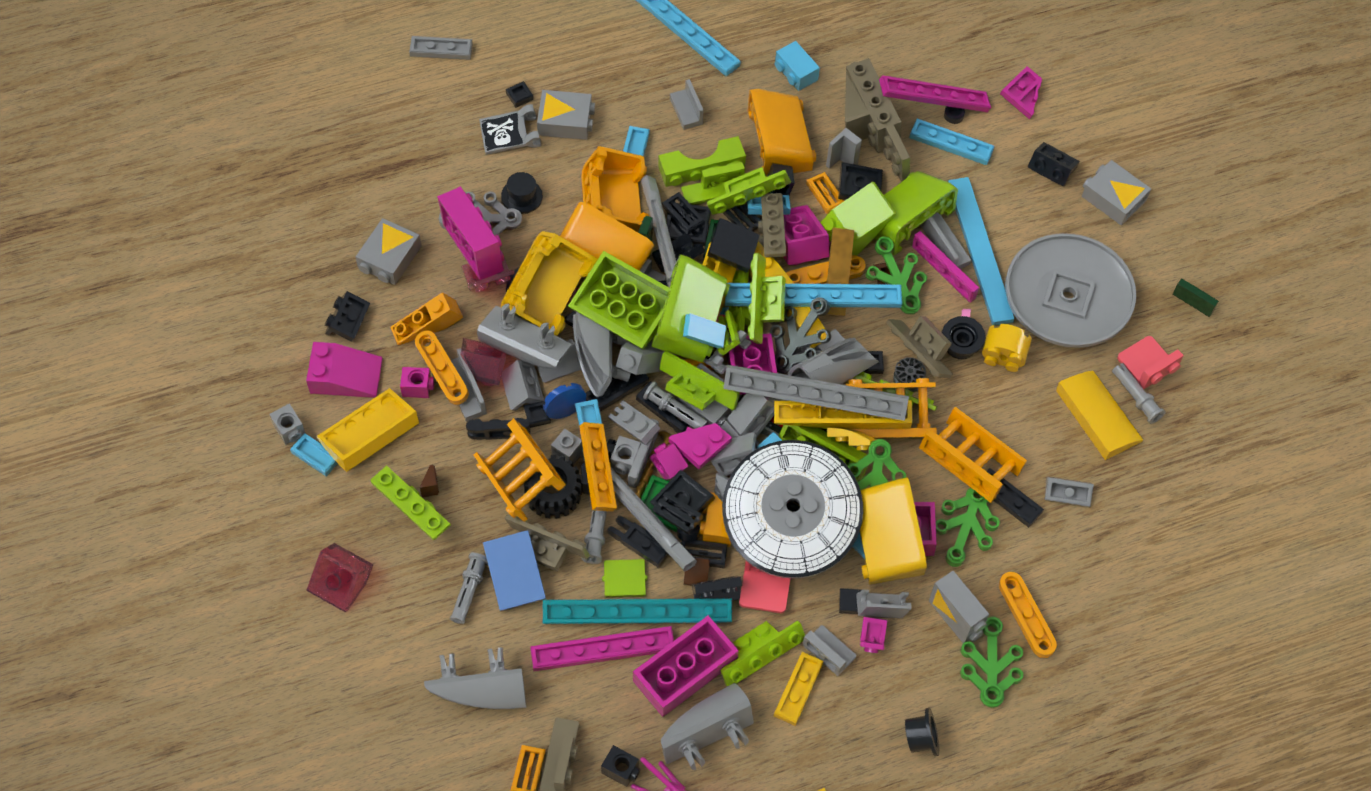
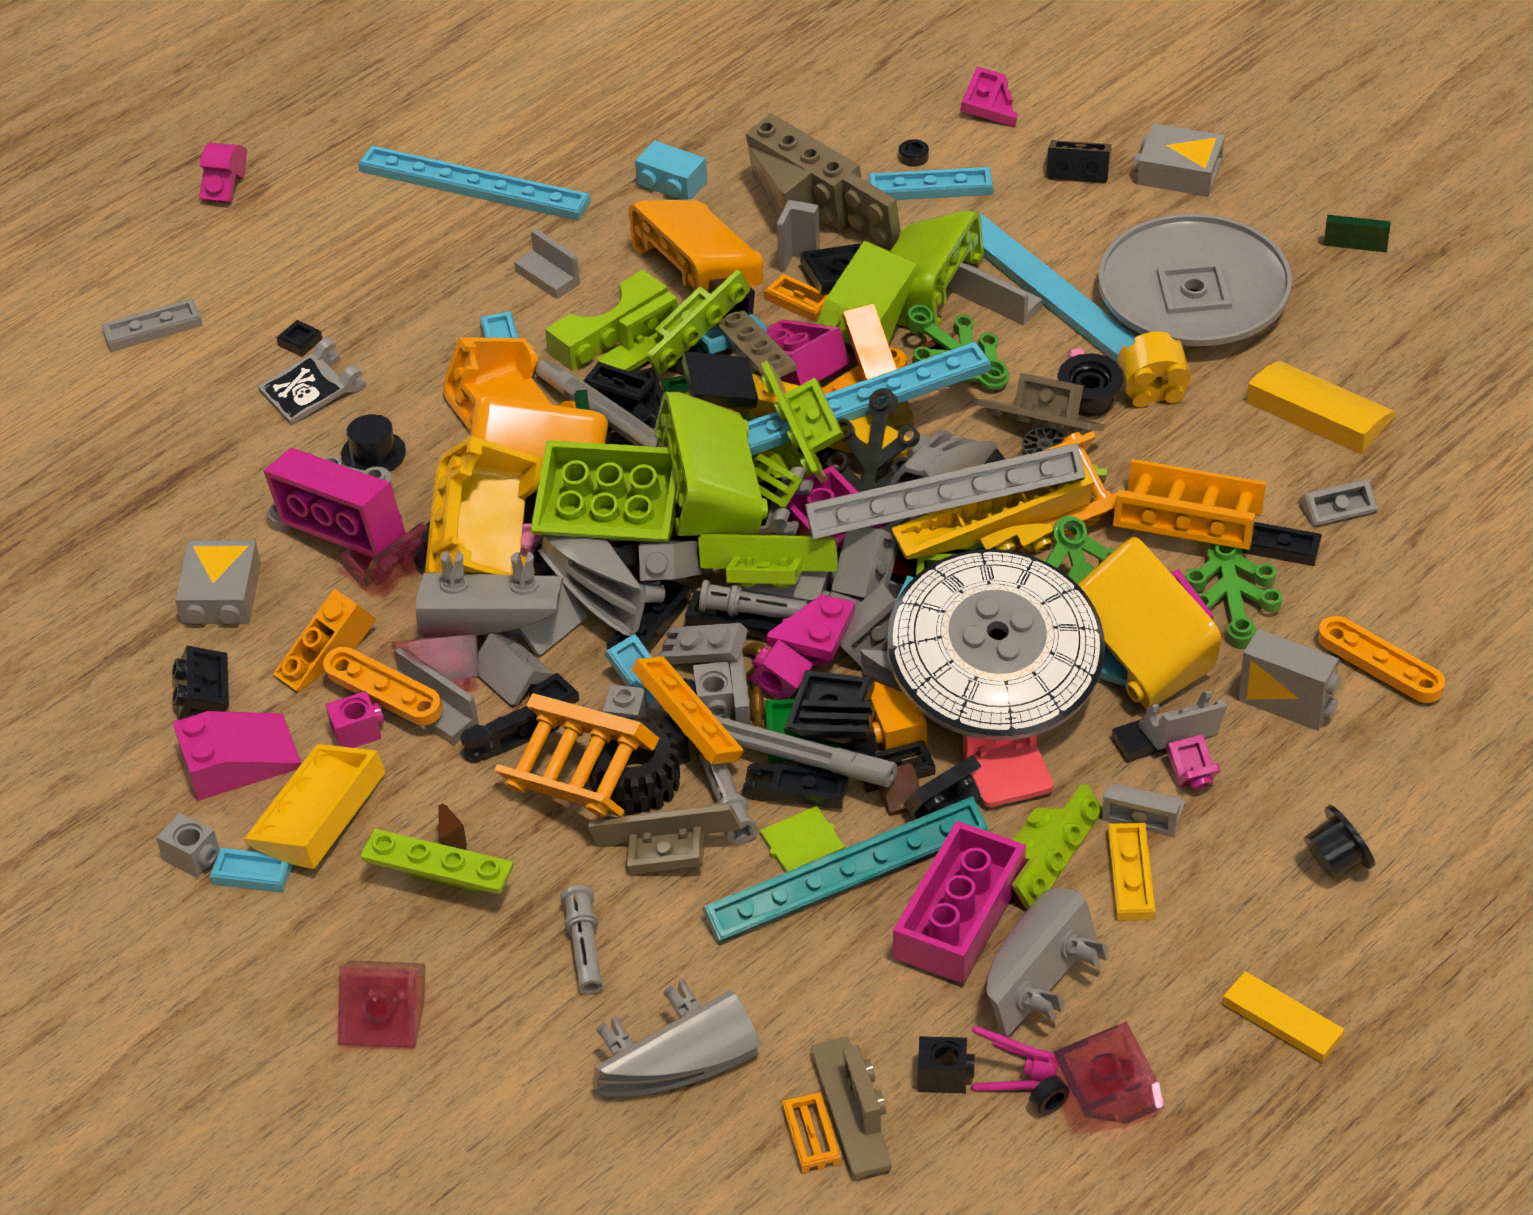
camera: 20 degrees left, 15 degrees down
(514, 570) = (640, 887): medium blue tile -> none
(562, 400) = (585, 655): blue tile -> none
(565, 114) = (382, 334): light grey brick -> none
(600, 648) = (820, 938): dark pink tile -> none
(704, 331) = (747, 477): medium azure tile -> none
(934, 93) = (879, 129): dark pink tile -> none
(945, 267) = (1014, 316): dark pink tile -> none
(991, 666) = (1393, 767): bright green plant -> none
(1144, 400) = (1367, 366): light grey pin -> none
(1149, 361) = (1347, 324): coral bracket -> none

